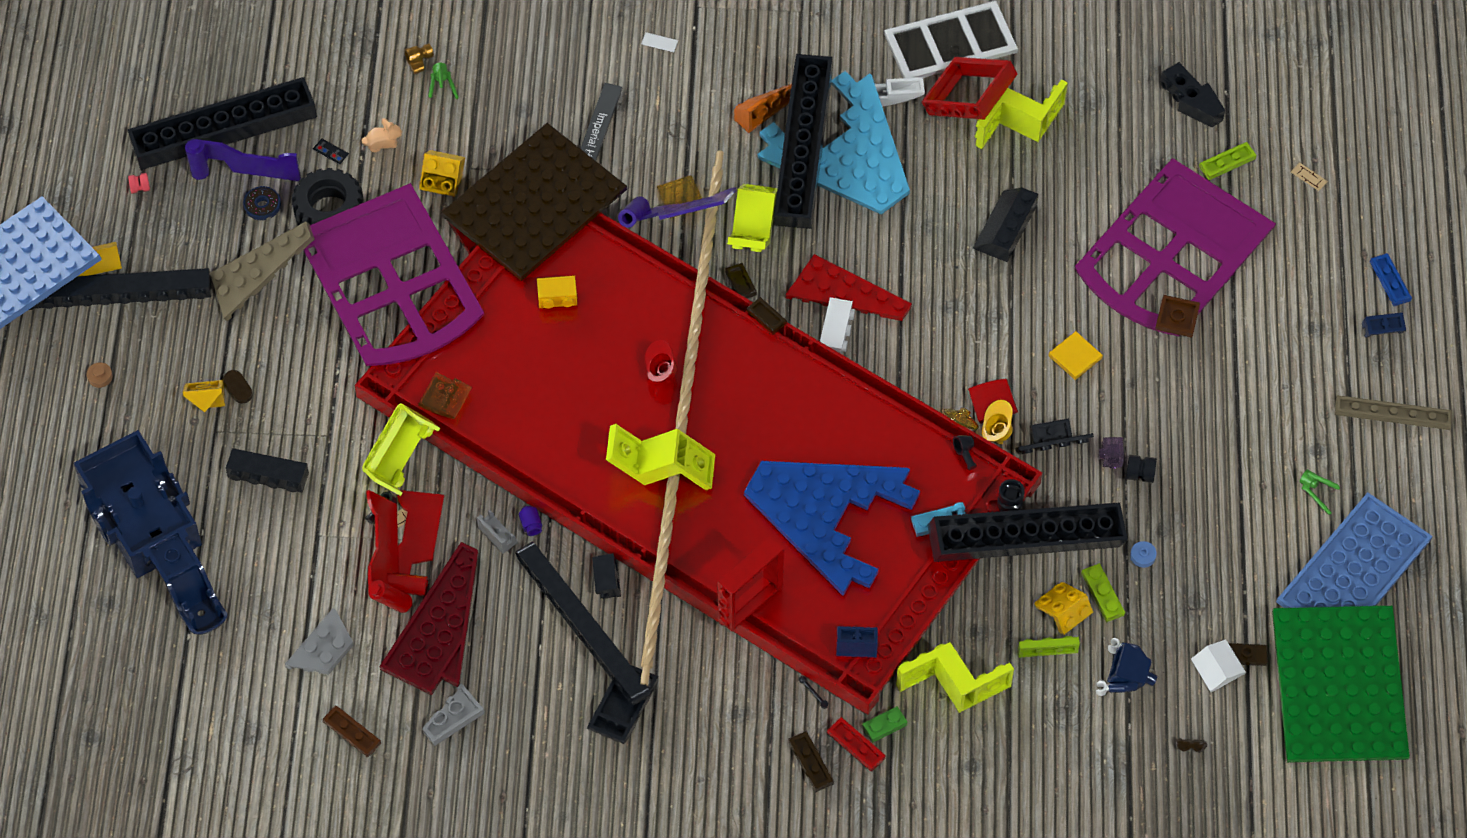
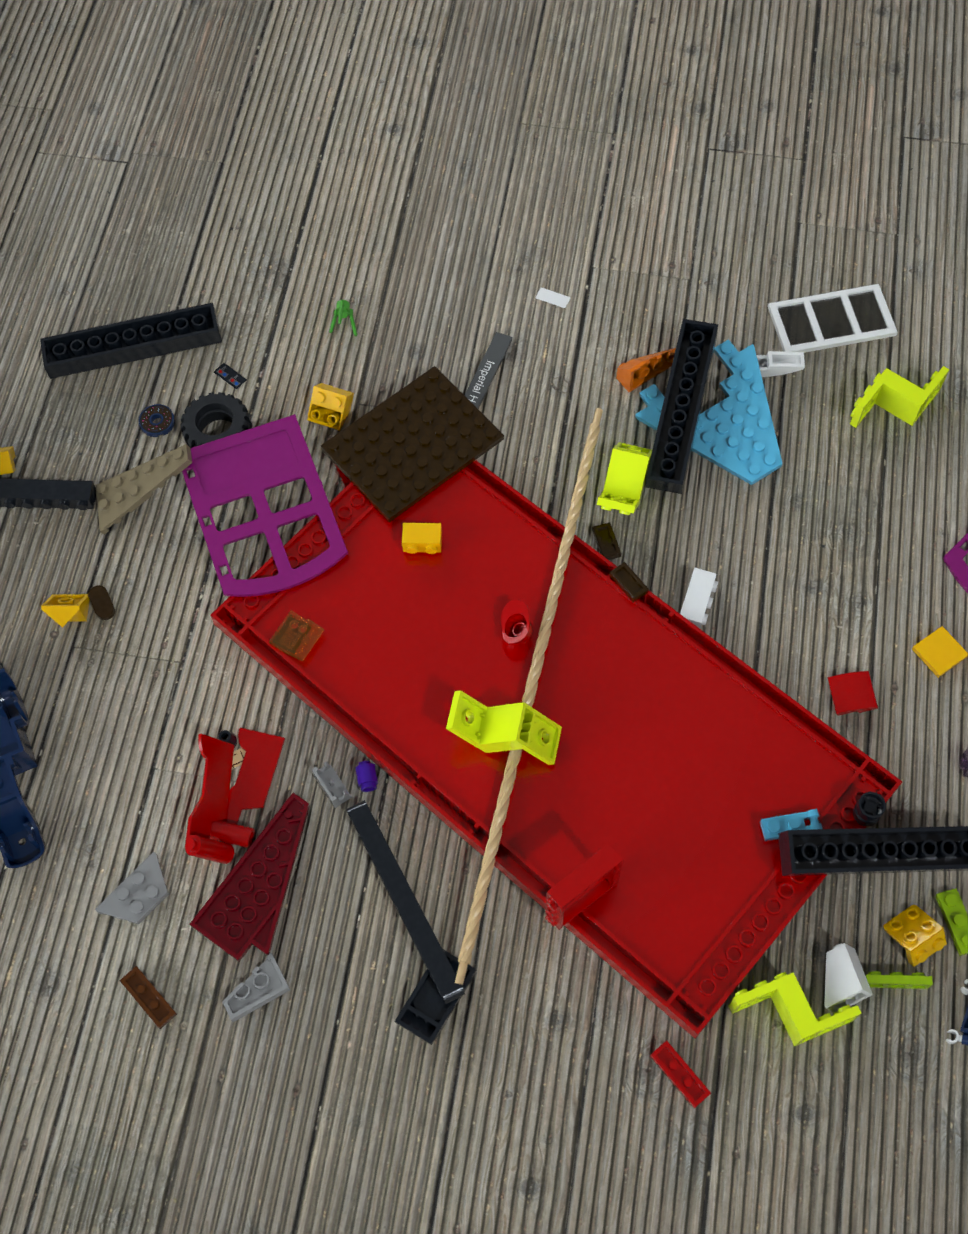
camera: 10 degrees right, 5 degrees up
(139, 183) = (44, 391): coral wheel -> none
(199, 152) = (102, 367): dark purple door -> none
(267, 470) = (113, 694): black brick -> none
(382, 137) = (279, 366): light nougat animal -> none
(395, 447) = (239, 686): neon yellow windscreen -> none
(415, 56) = (322, 292): pearl gold piece -> none
(606, 576) = (436, 847): black hinge -> none
(640, 209) = (515, 460): dark purple door -> none
(679, 191) = (556, 449): clear yellow tile -> none
(809, 502) = (653, 791): blue wing -> none
(811, 761) = (629, 1089): dark brown plate -> none
(823, 703) = (649, 1019): black hinge -> none
(825, 280) = (691, 549): red wing -> none
(857, 641) = (692, 960): dark blue hinge -> none
(884, 724) = (713, 1052): bright green plate -> none
(962, 417) = (820, 710): clear yellow dish -> none
(962, 445) = (820, 744): black bar -> none
(997, 422) = (857, 718): yellow piece -> none
(999, 645) = (844, 978): none -> white slope
(1000, 70) = (884, 351): red window -> none
(1007, 223) = (877, 505): black slope -> none
(1051, 434) = (913, 736): black bracket -> none

